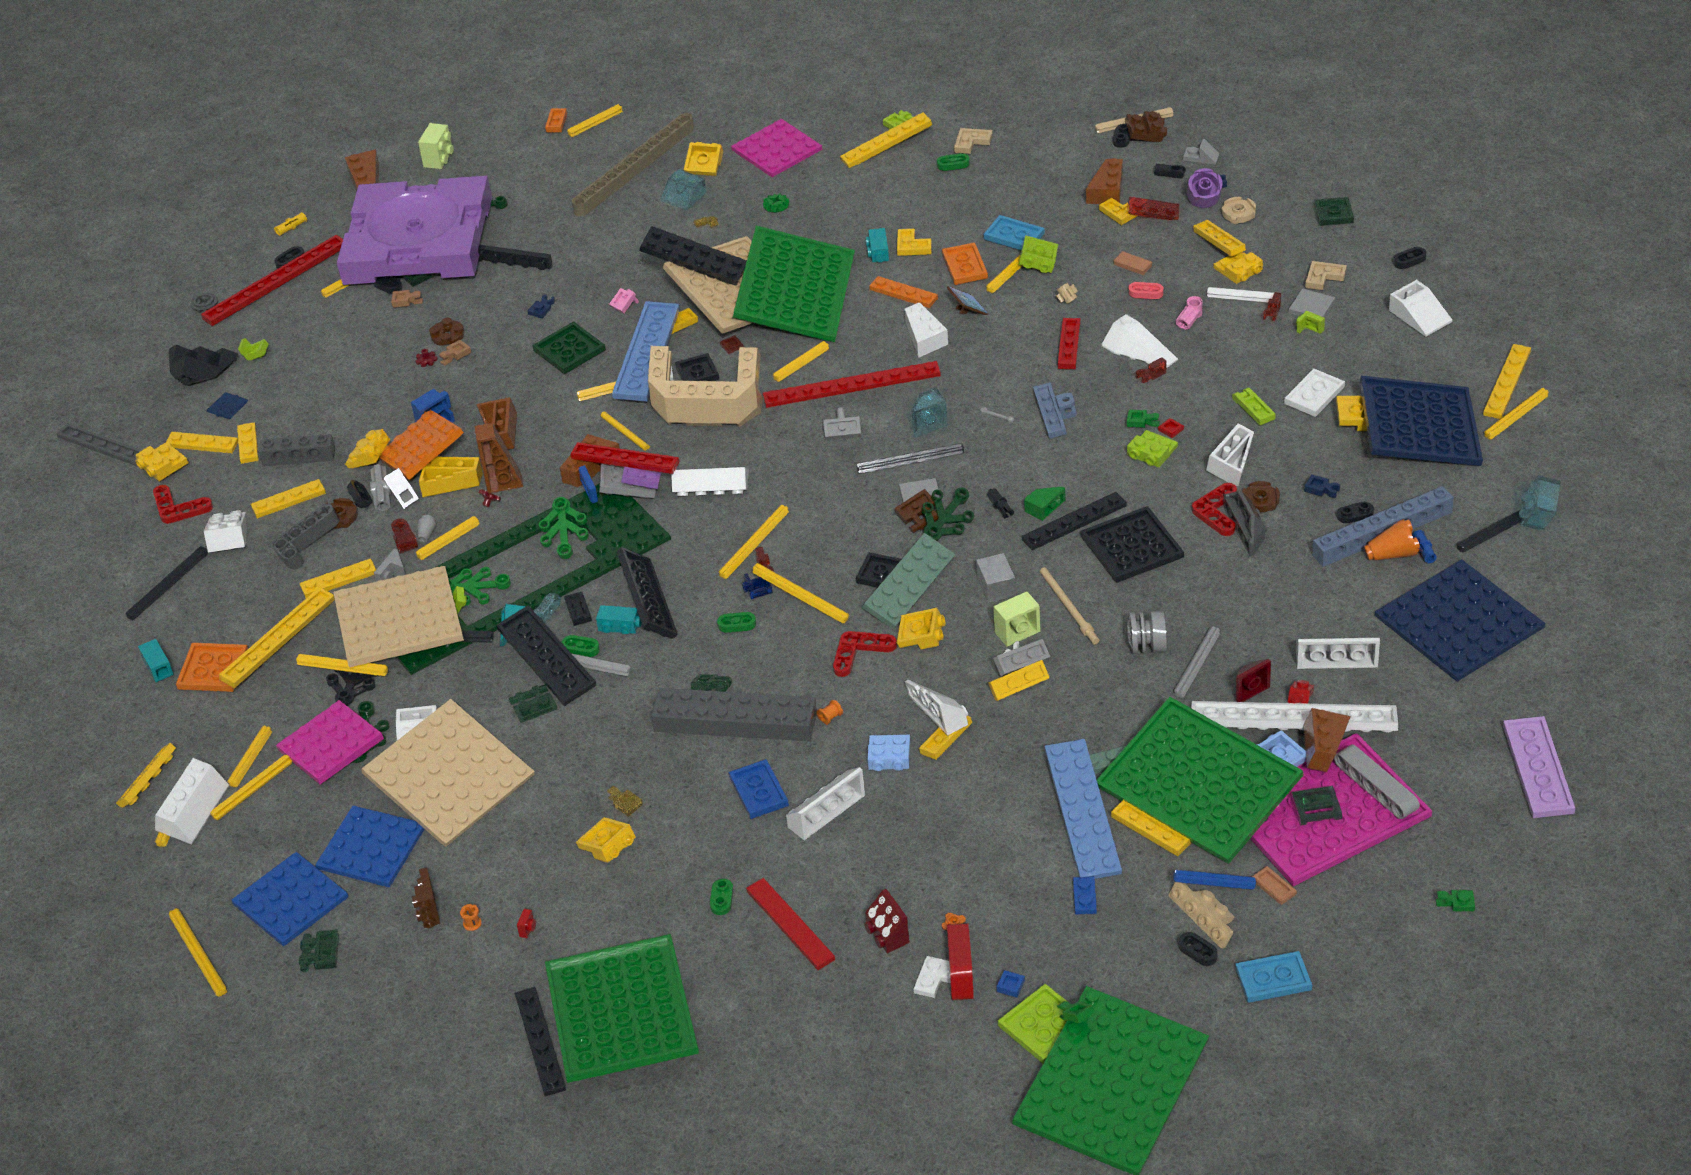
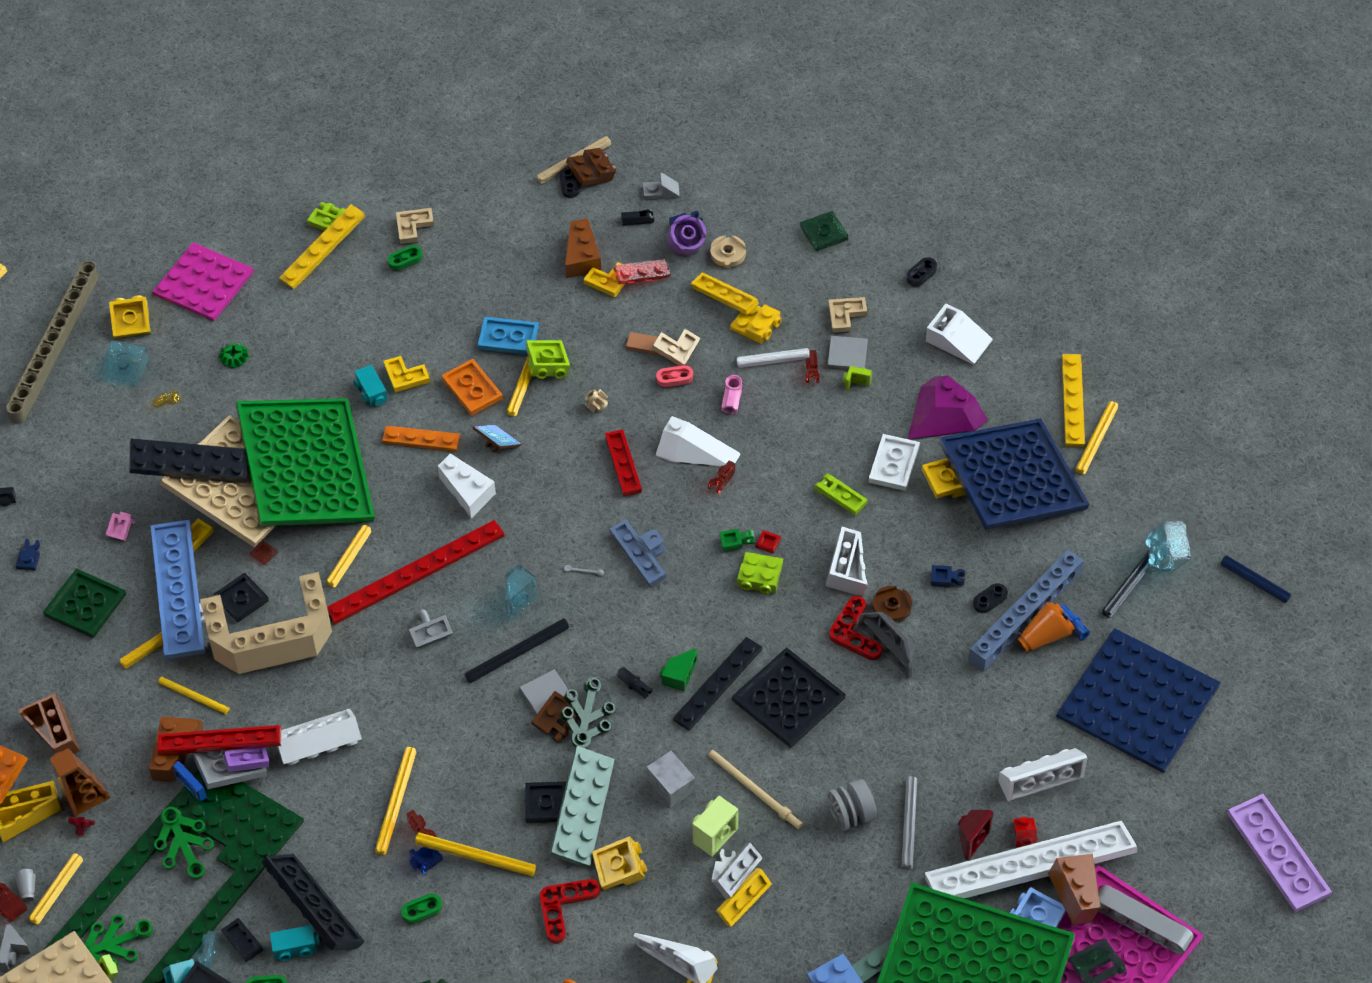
camera: 25 degrees left, 10 degrees up
(1157, 272) = (676, 351): none -> tan plate
(1382, 359) = (945, 409): none -> magenta wedge
(1620, 553) = (1255, 579): none -> dark blue axle

